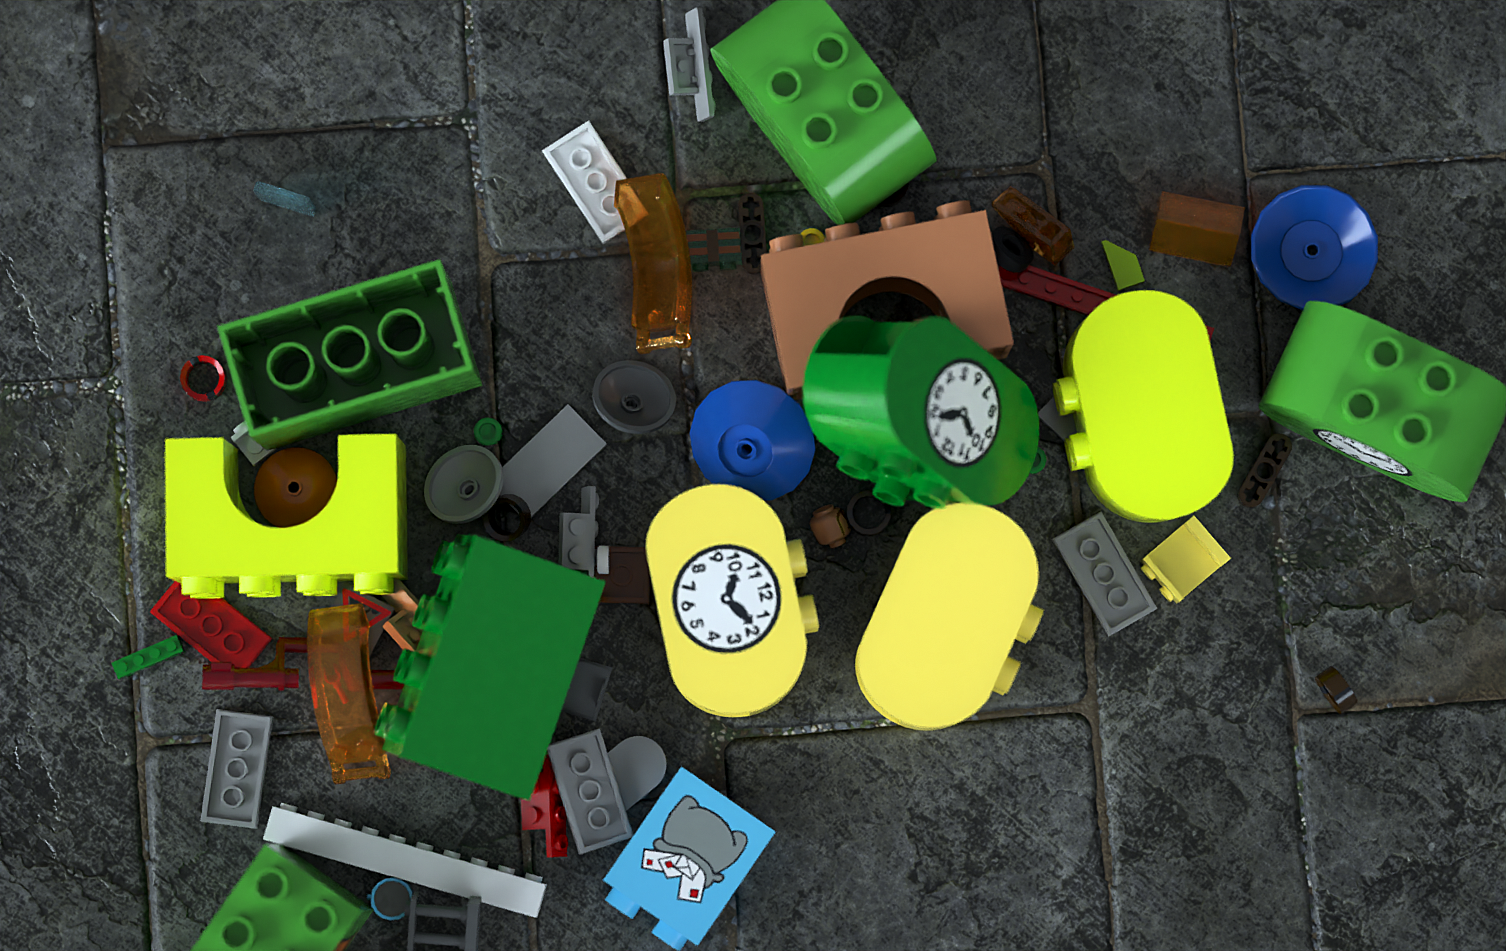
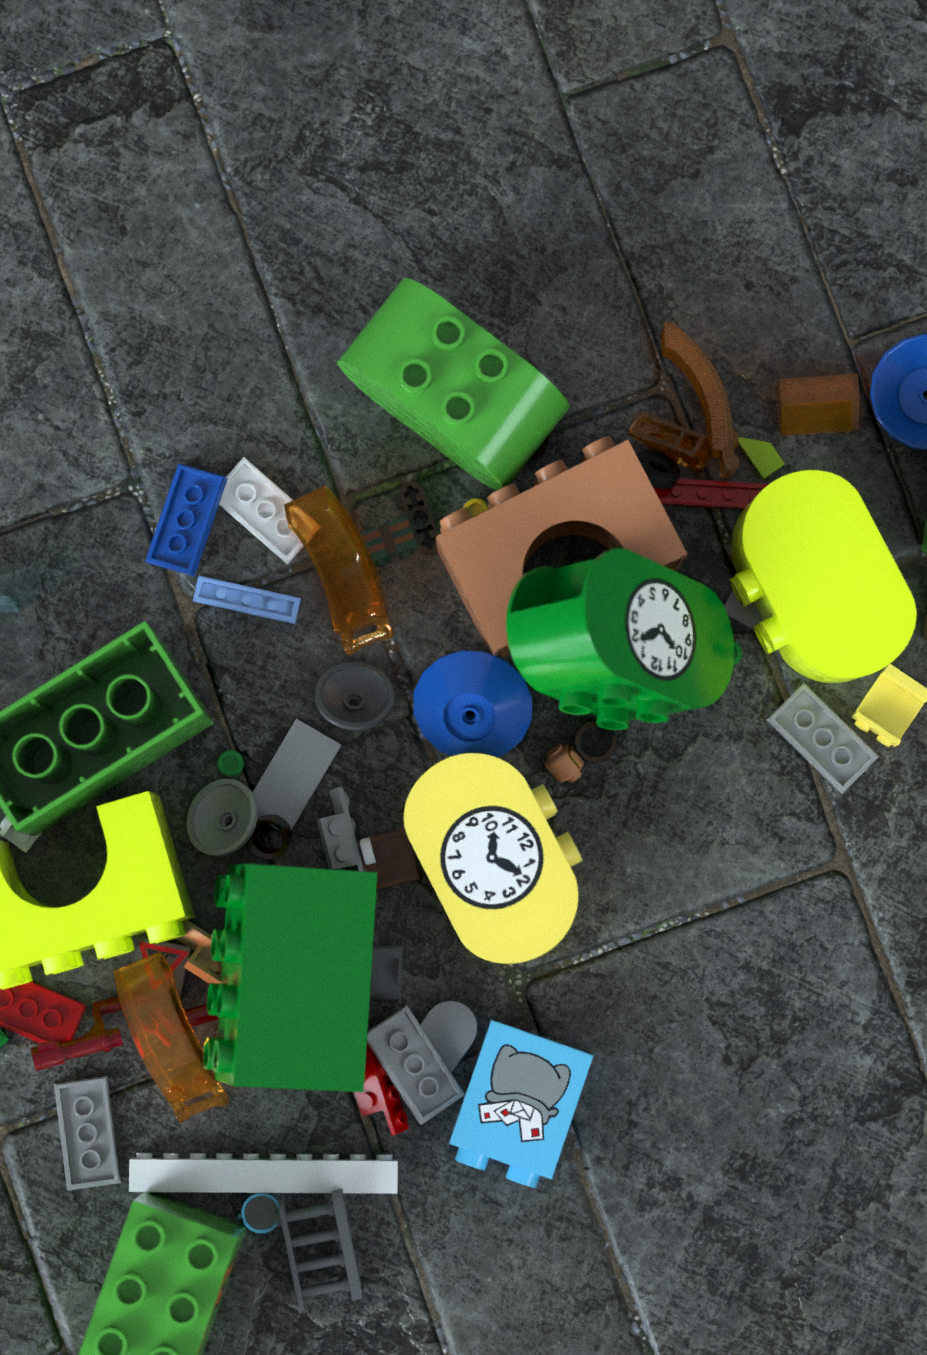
camera: 15 degrees left, 0 degrees up
(294, 465) = (88, 858): orange dish -> none
(511, 169) = (186, 520): none -> blue tile
(551, 268) = (246, 599): none -> light blue tile
(689, 66) = (321, 382): light grey bracket -> none
(950, 618) = (697, 818): light yellow brick -> none
(1086, 175) = (710, 391): none -> clear orange windscreen

